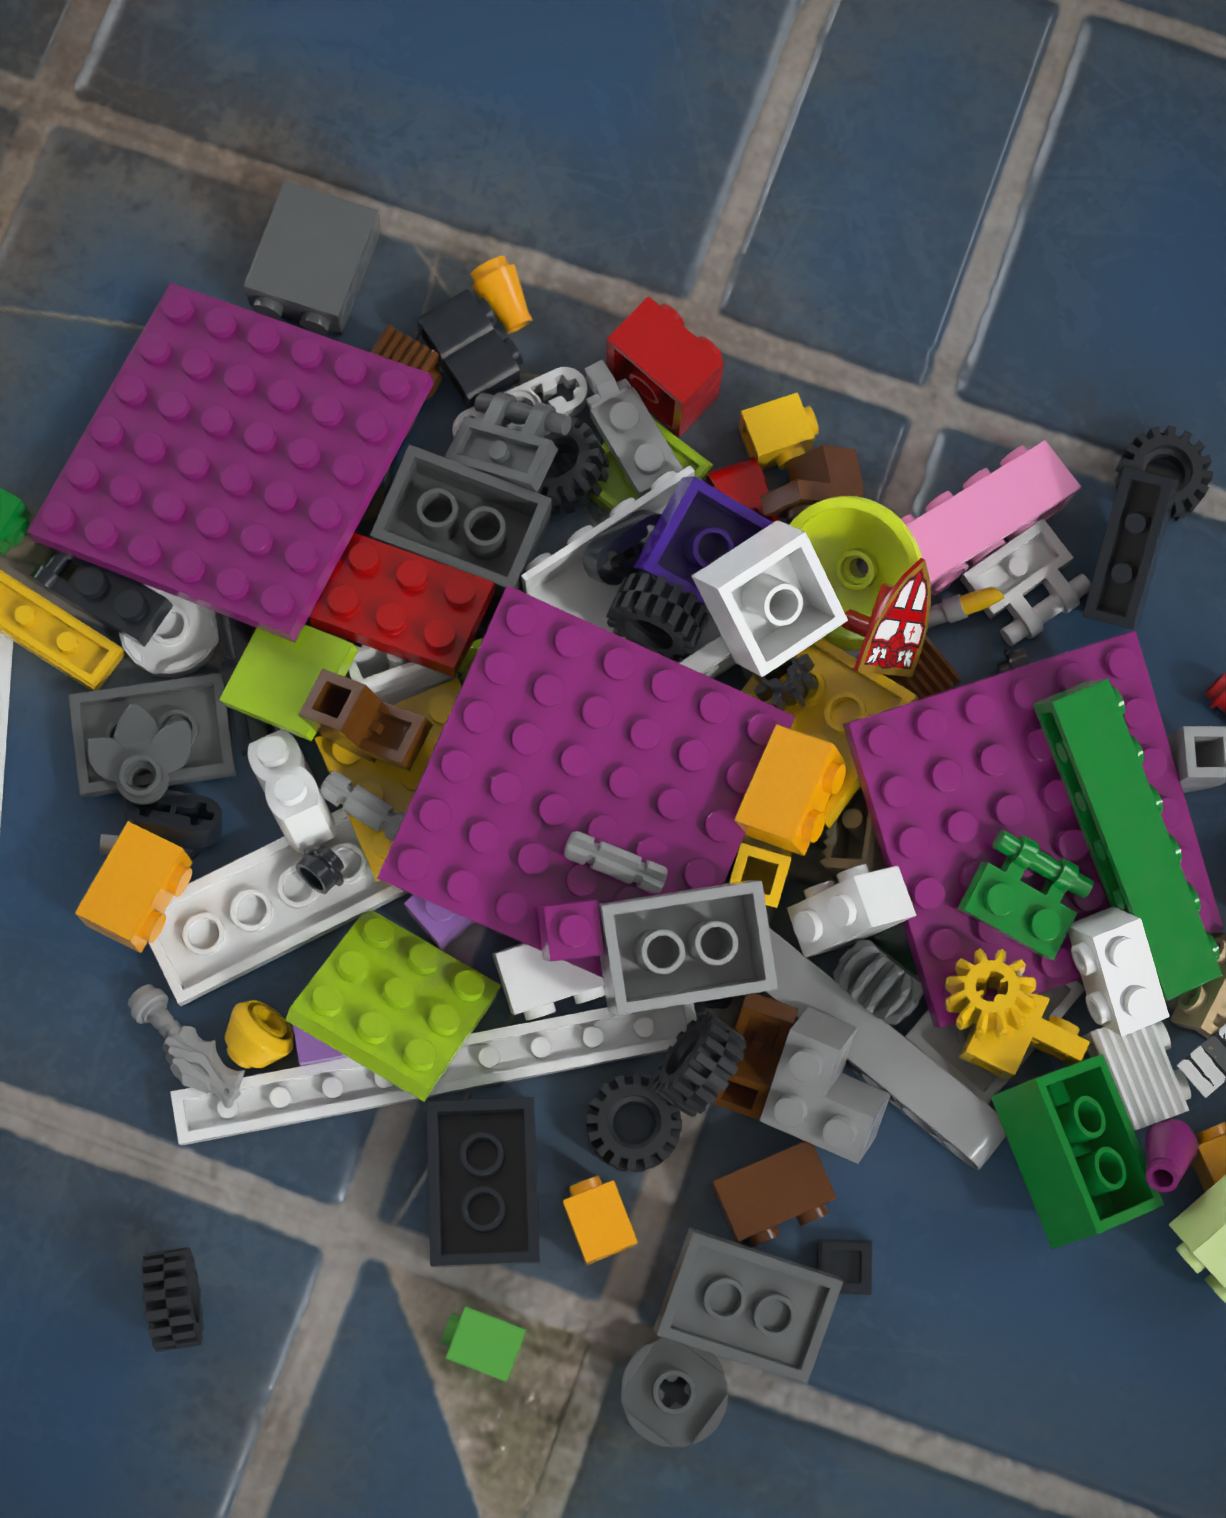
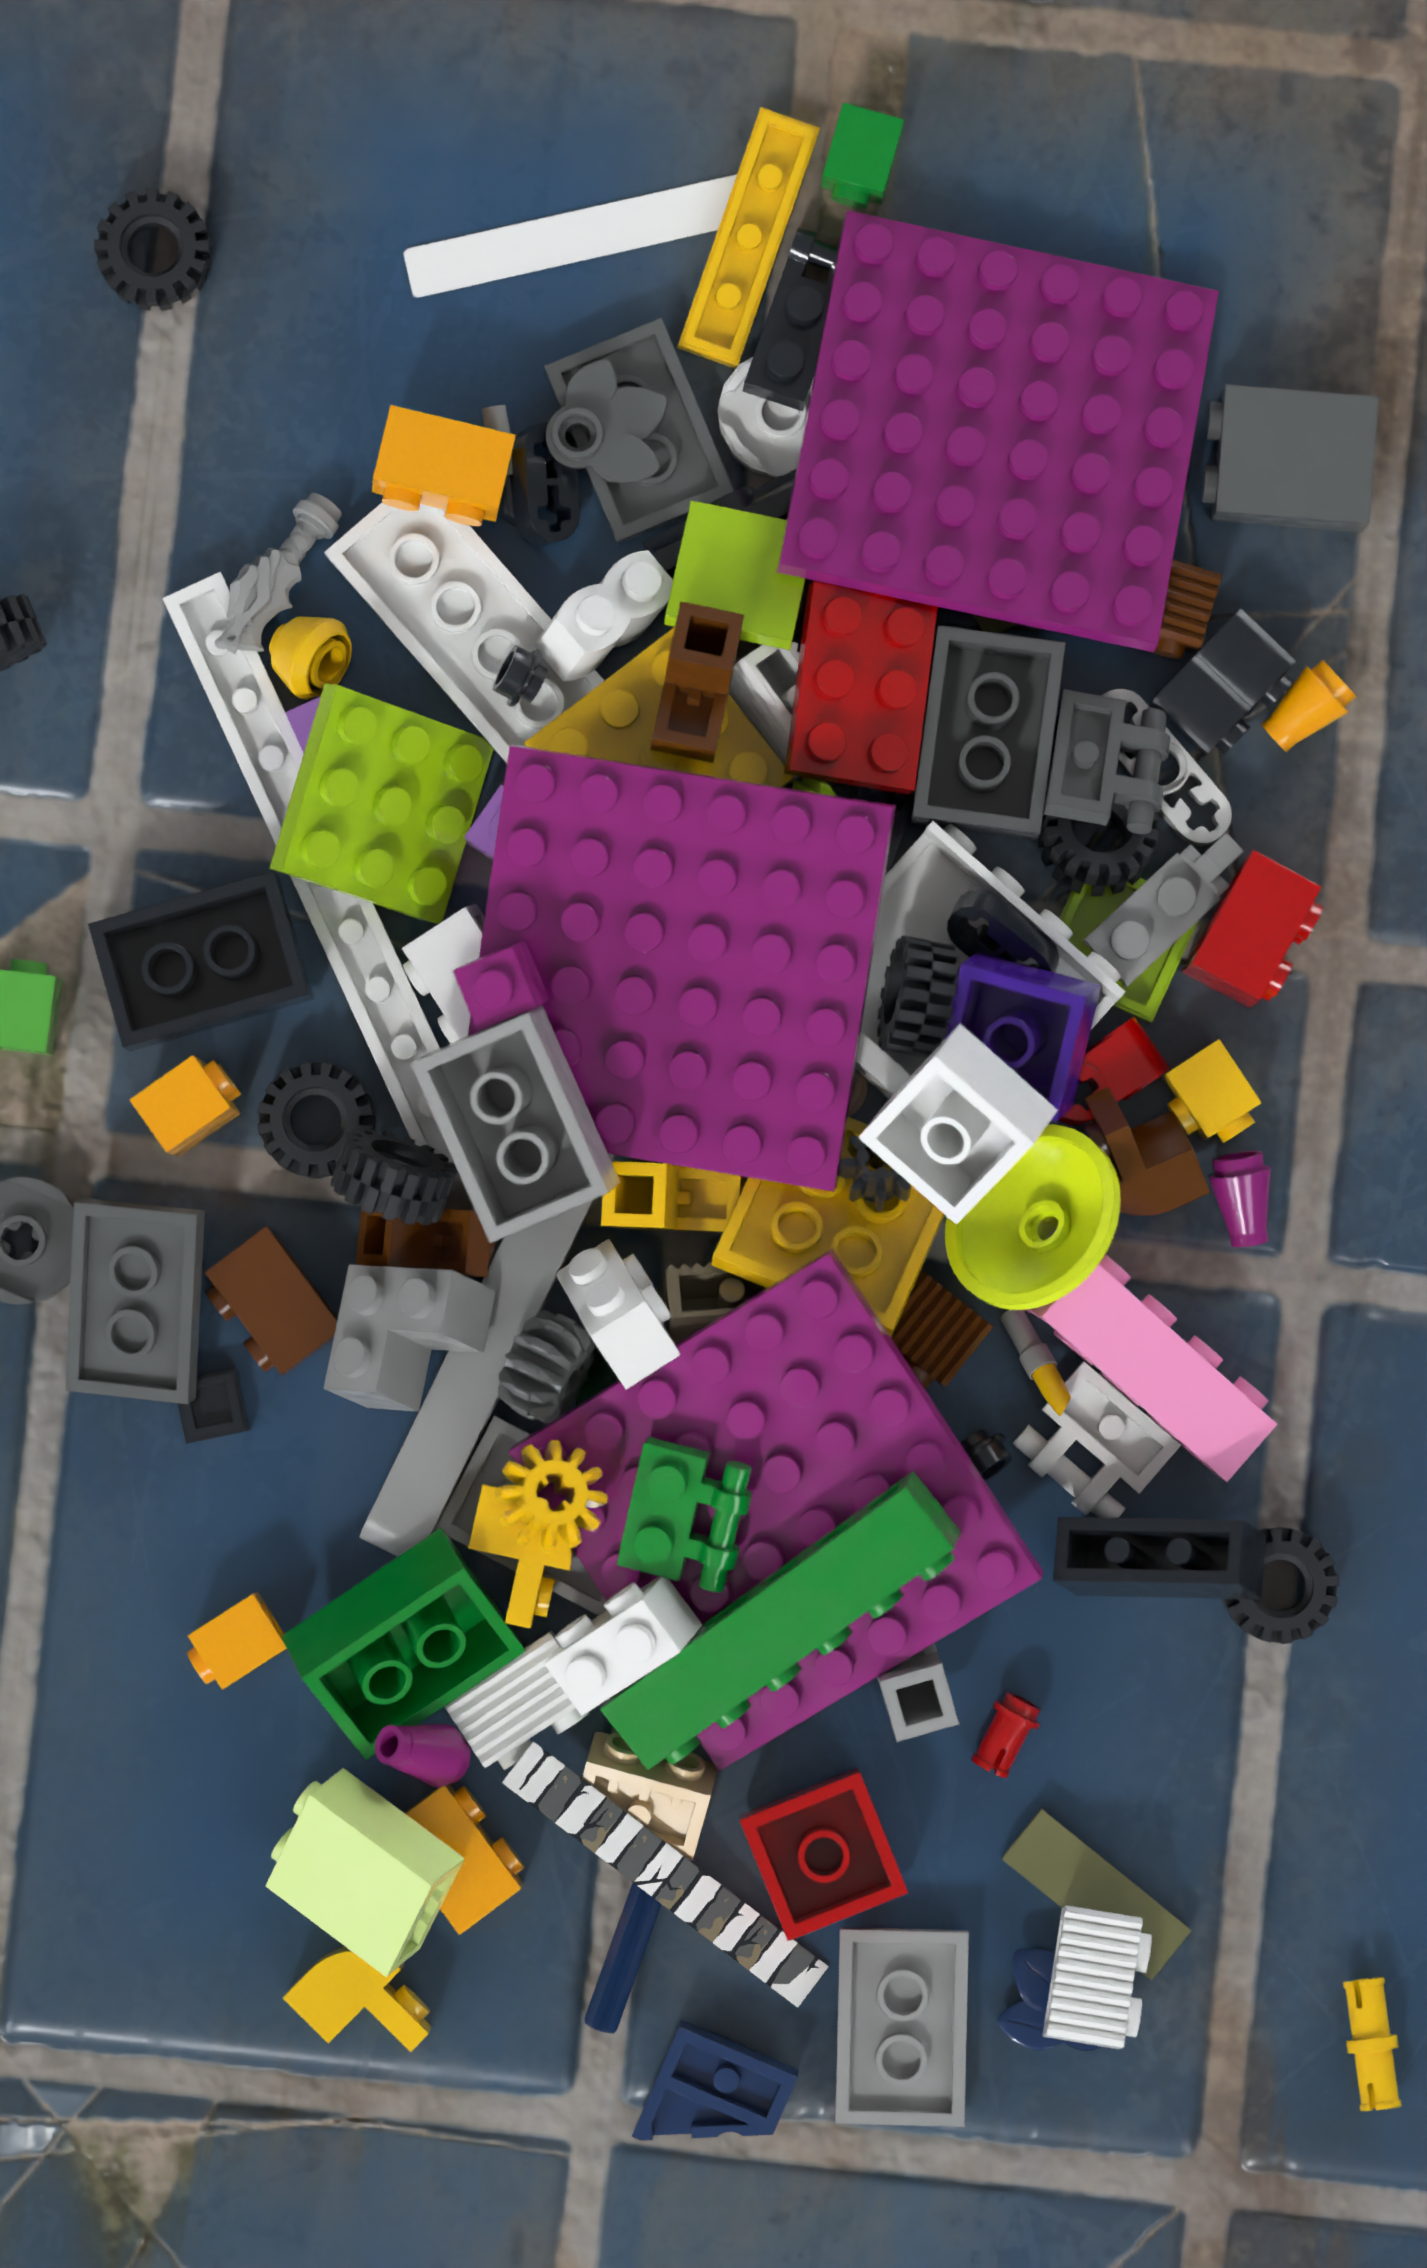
camera: 85 degrees right, 10 degrees up
(361, 804) = (602, 704): light grey axle -> none
(615, 862) = (597, 1019): light grey axle -> none
(791, 790) = (737, 1206): light orange brick -> none
(861, 429) = (1242, 1194): none -> magenta cone
(896, 625) = (971, 1287): shield -> none
(1043, 1291) = (236, 1642): none -> light orange brick

